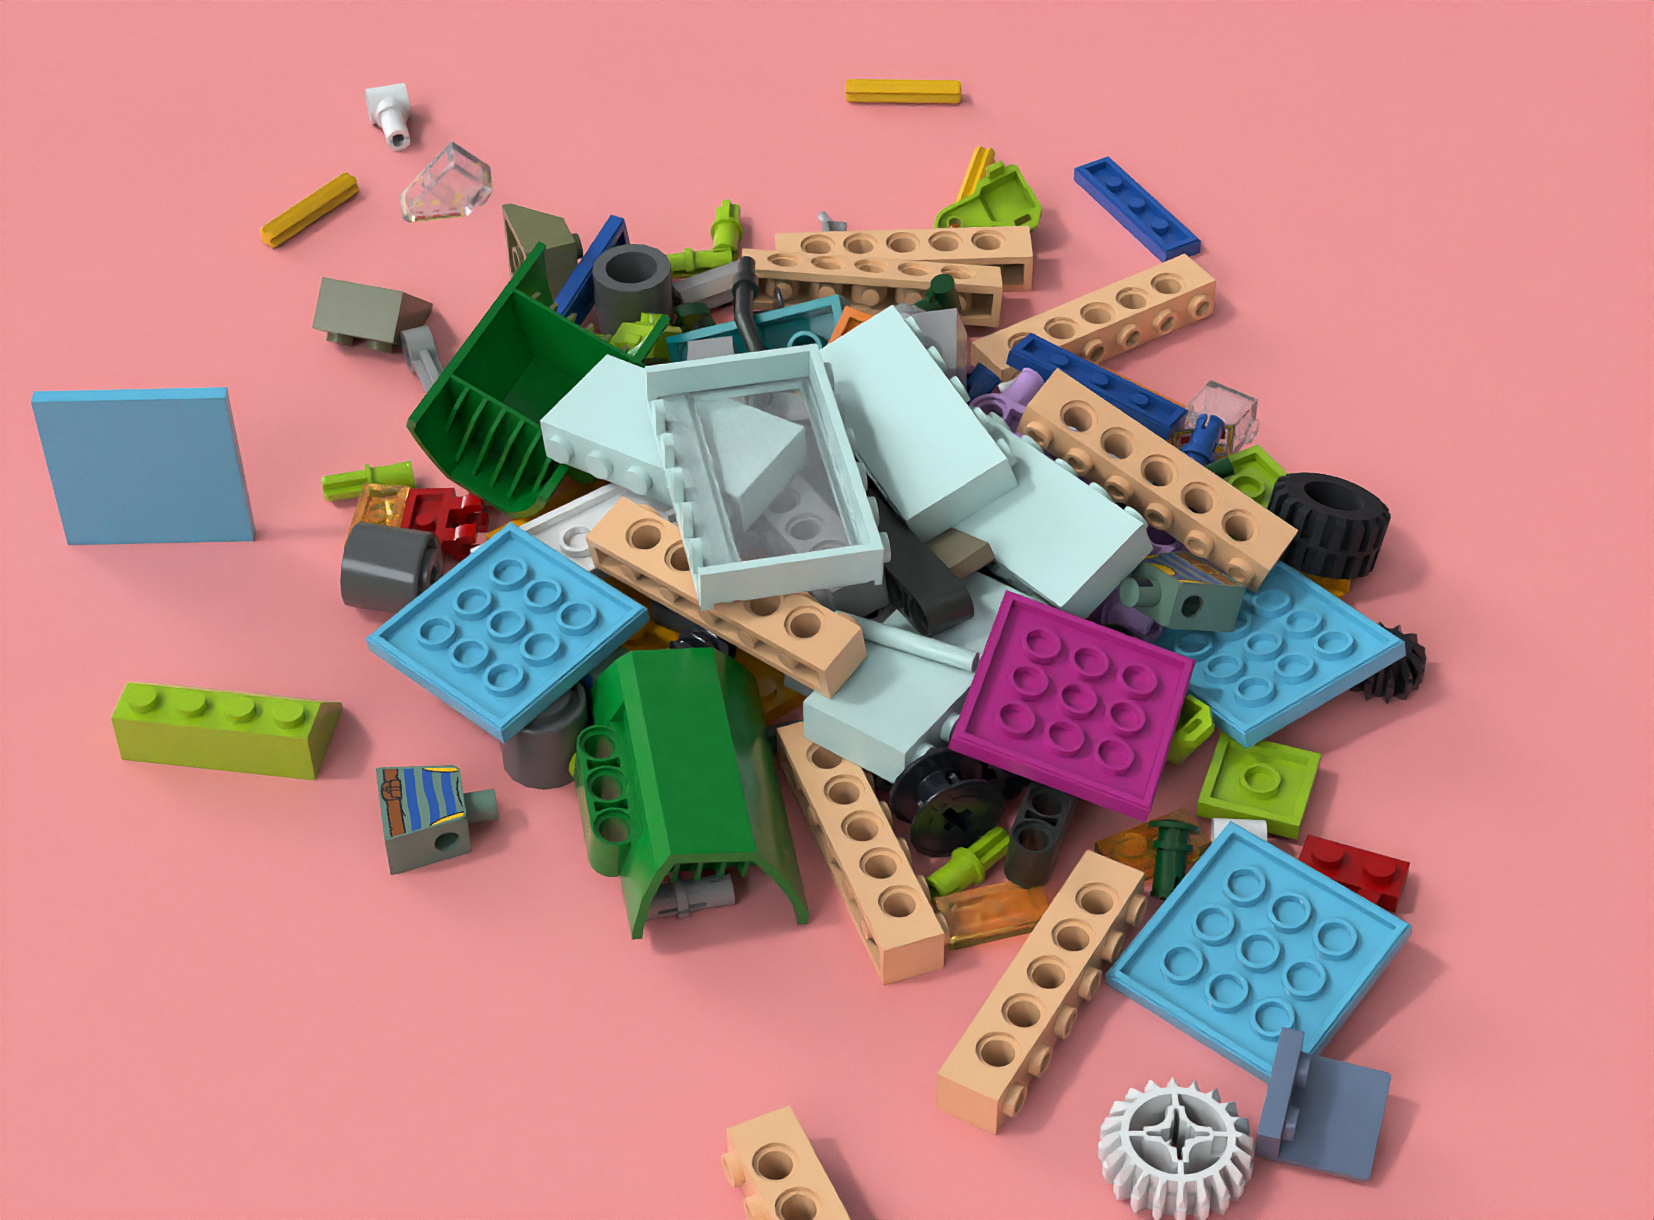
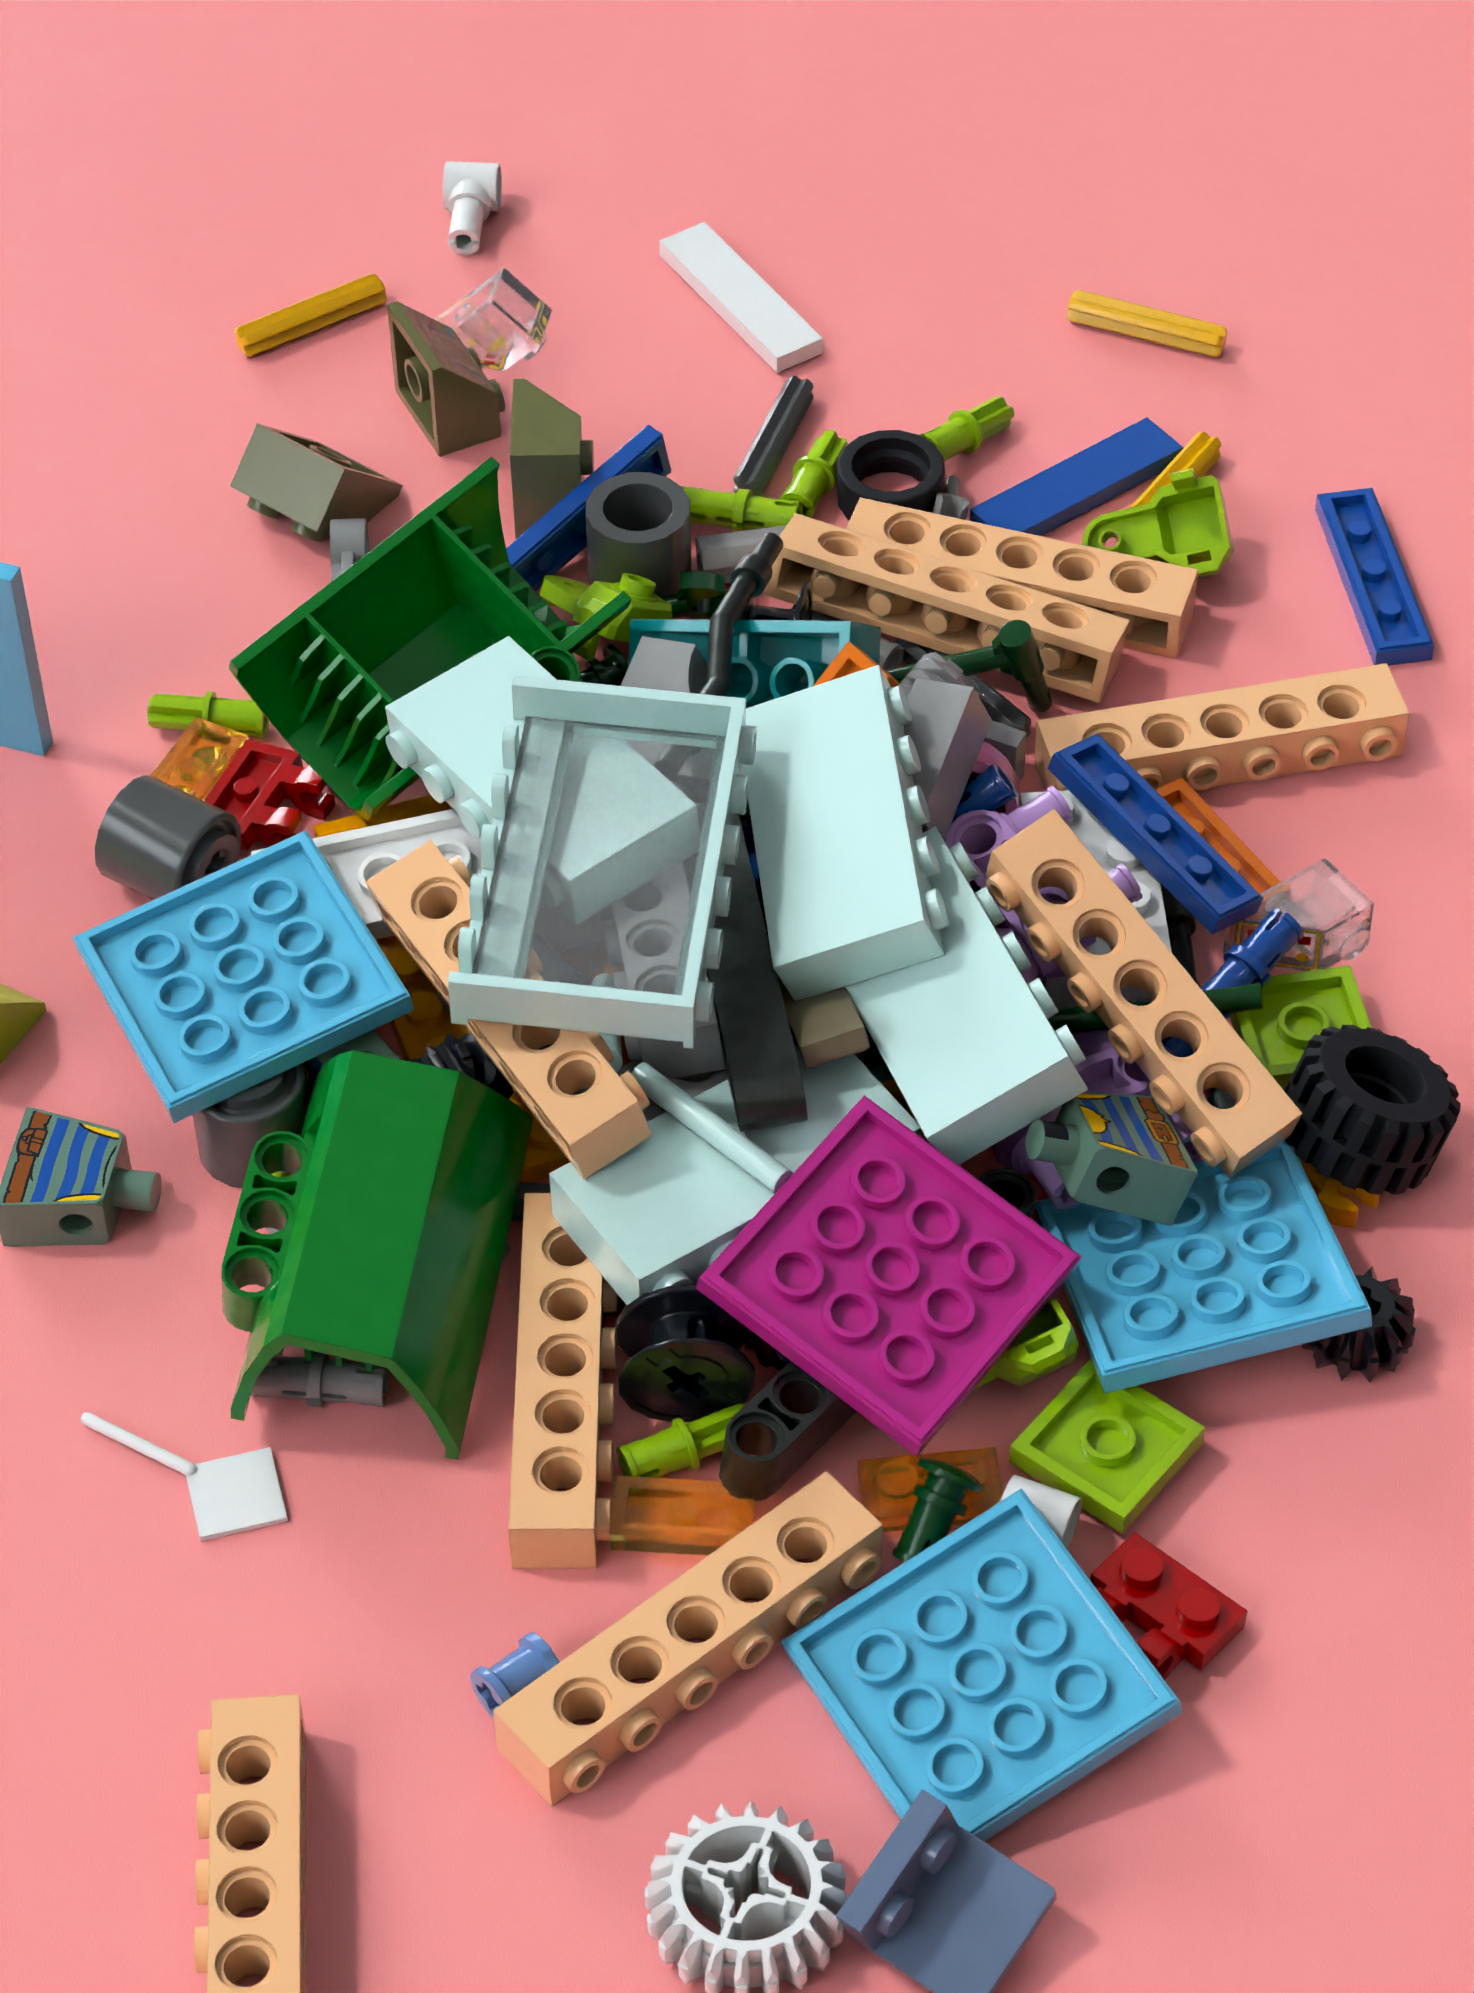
camera: 20 degrees right, 5 degrees up
(433, 230) = (442, 382): none -> olive slope
(614, 134) = (741, 297): none -> white tile
(647, 994) = (225, 1493): none -> white piece
(685, 212) = (774, 436): none -> dark grey axle
(776, 205) = (890, 452): none -> black tyre
(815, 182) = (969, 428): none -> lime axle
(914, 192) = (1081, 481): none -> blue tile
(930, 1053) = (513, 1672): none -> medium blue bush

